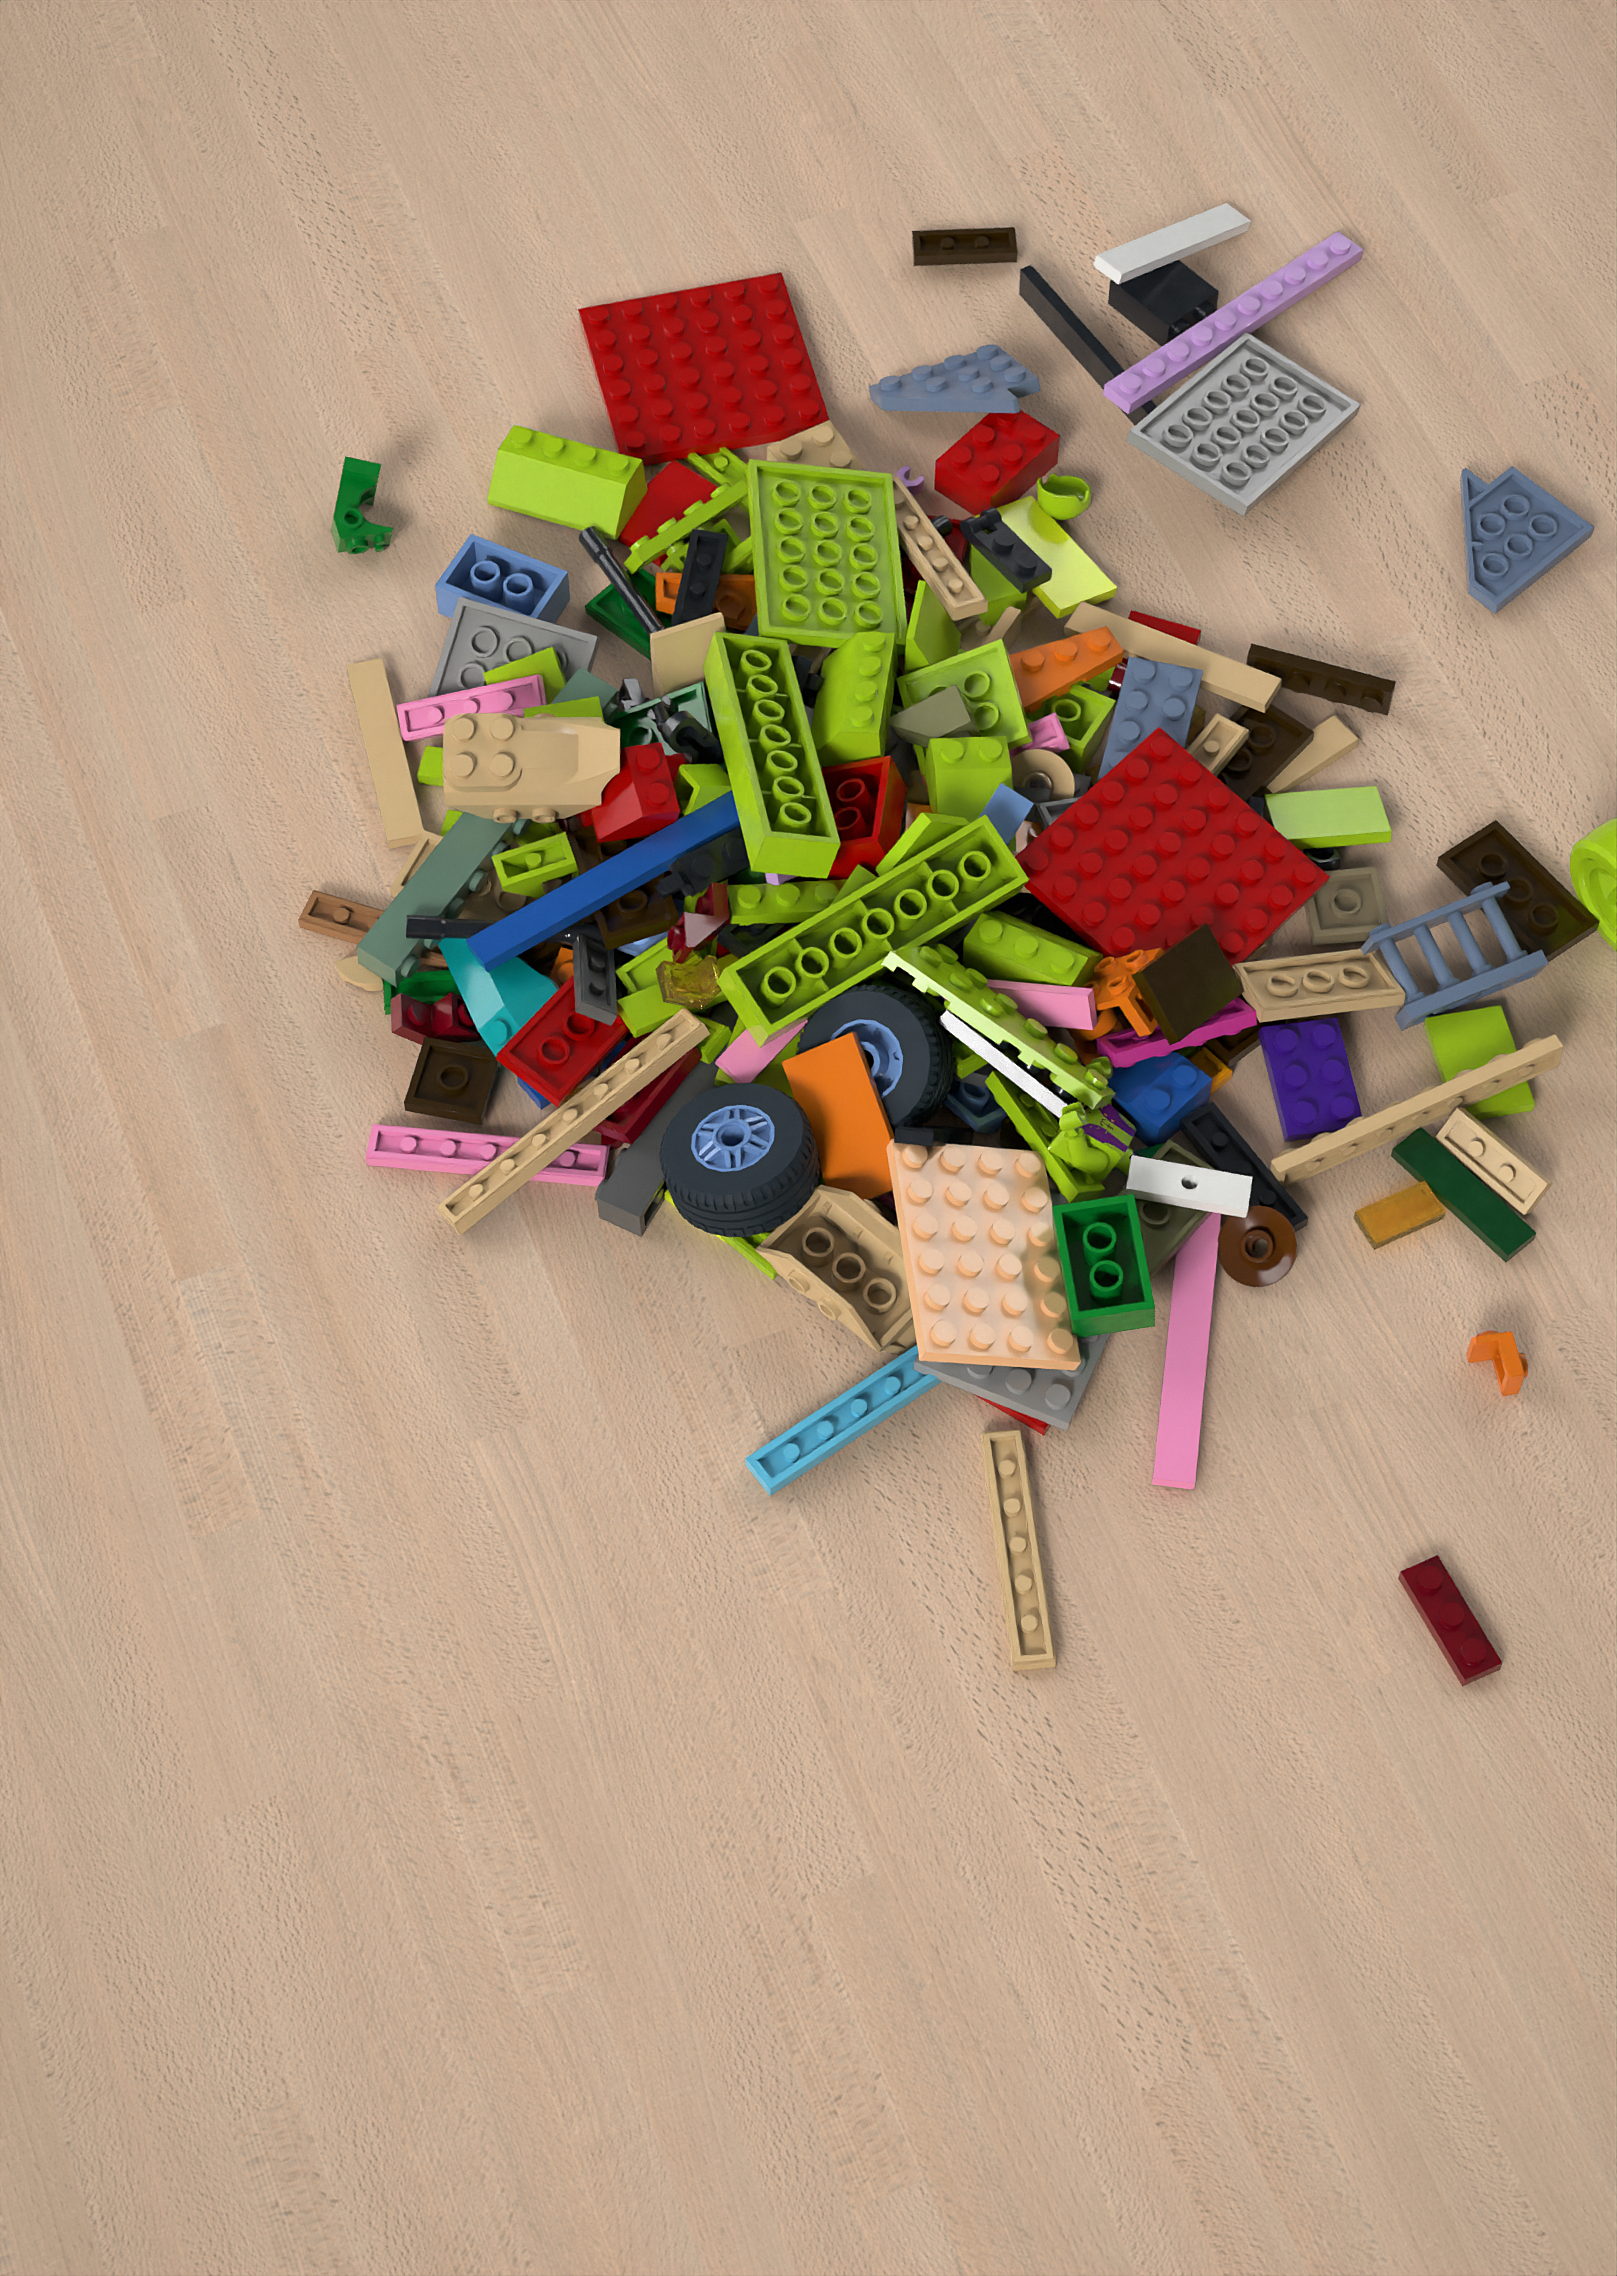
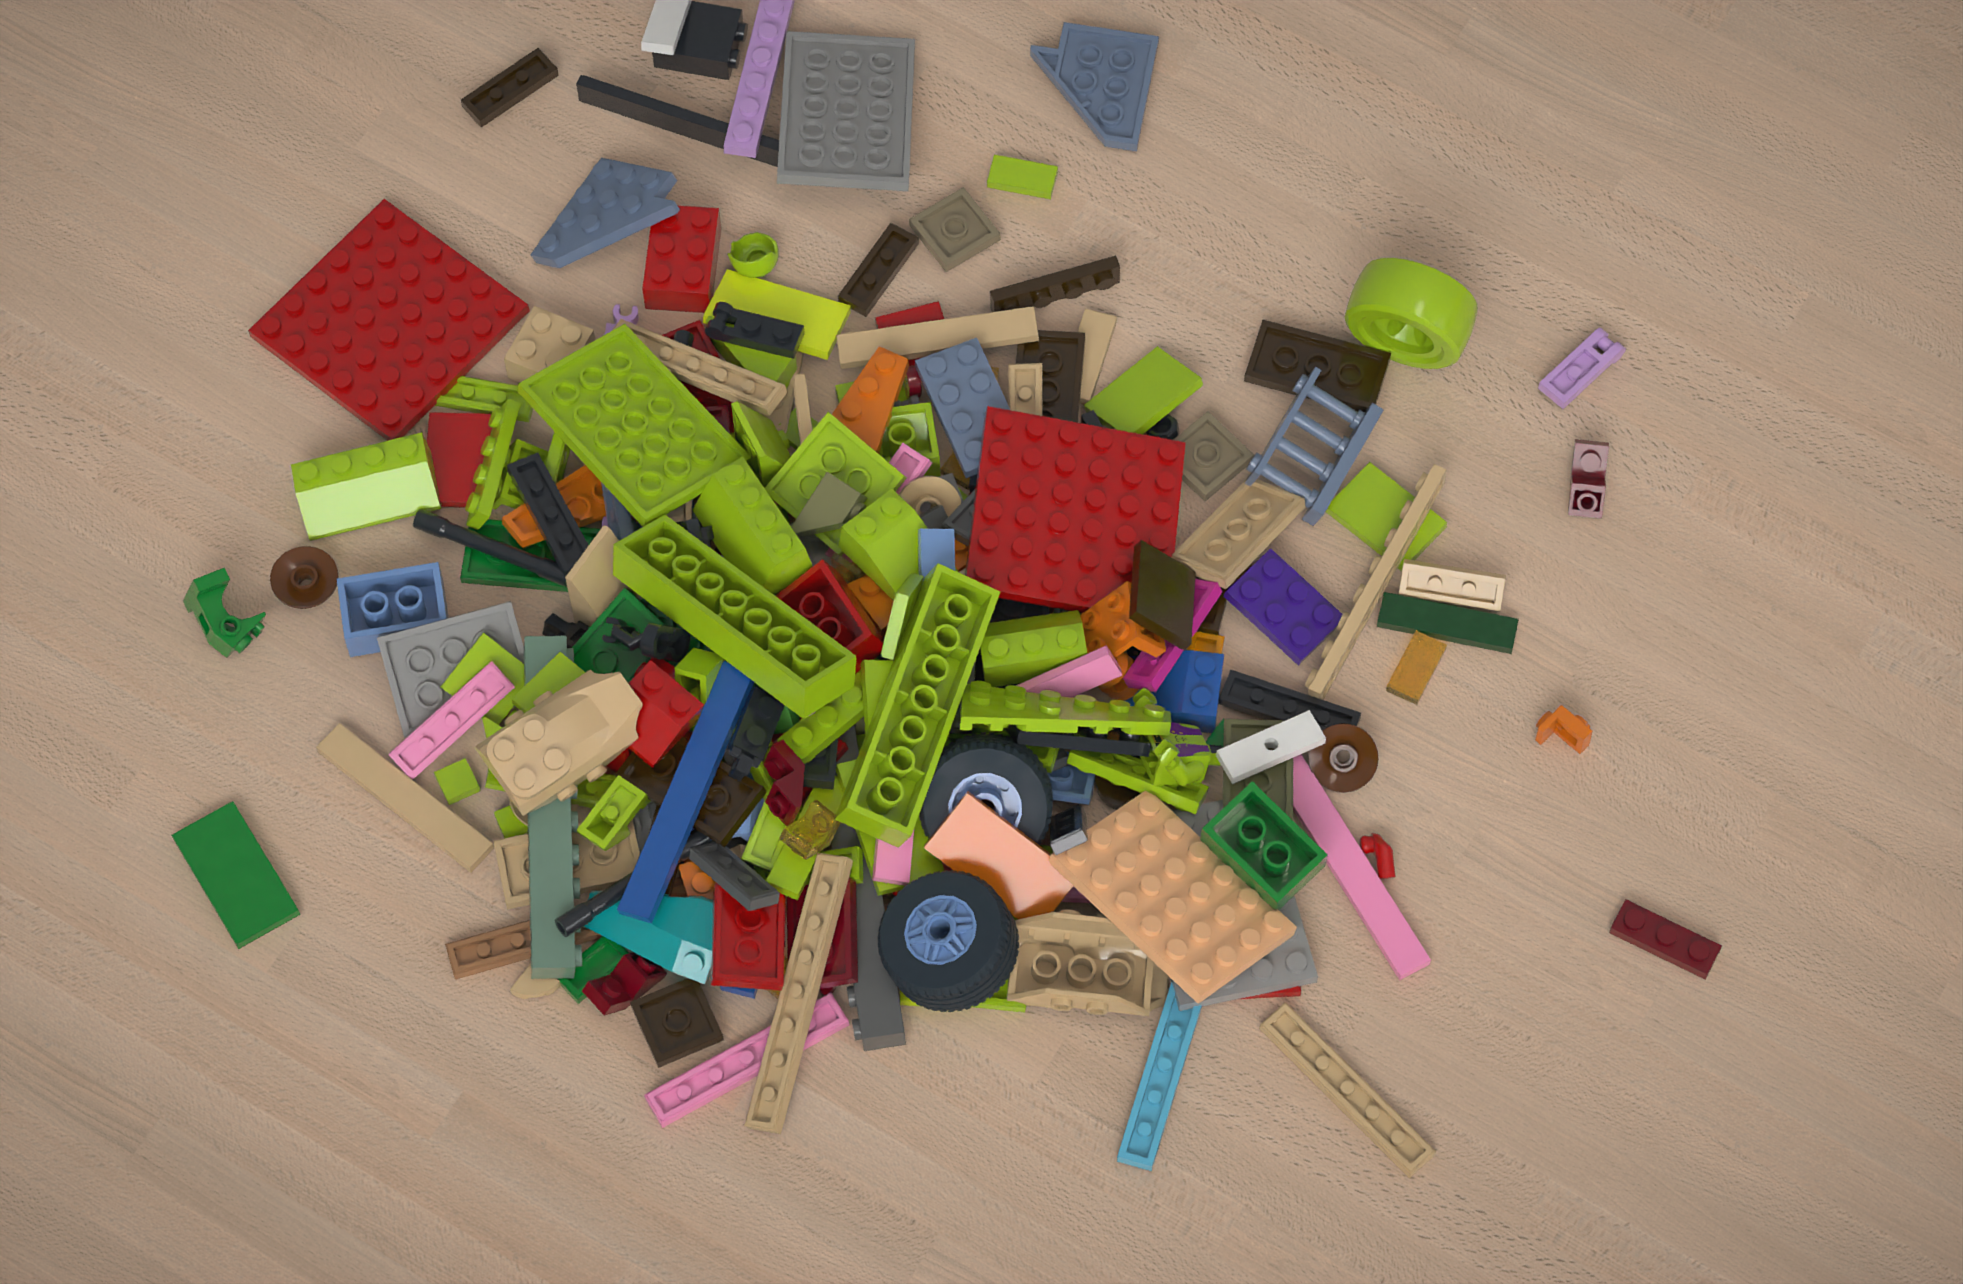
camera: 35 degrees left, 5 degrees up
(192, 726) = (235, 875): none -> green tile
(450, 521) = (301, 565): none -> reddish brown dish
(1168, 573) = (878, 269): none -> dark brown plate
(1226, 1359) = (1383, 853): none -> red arm
(1266, 580) = (954, 229): none -> dark tan plate
(1368, 574) = (1022, 176): none -> lime tile

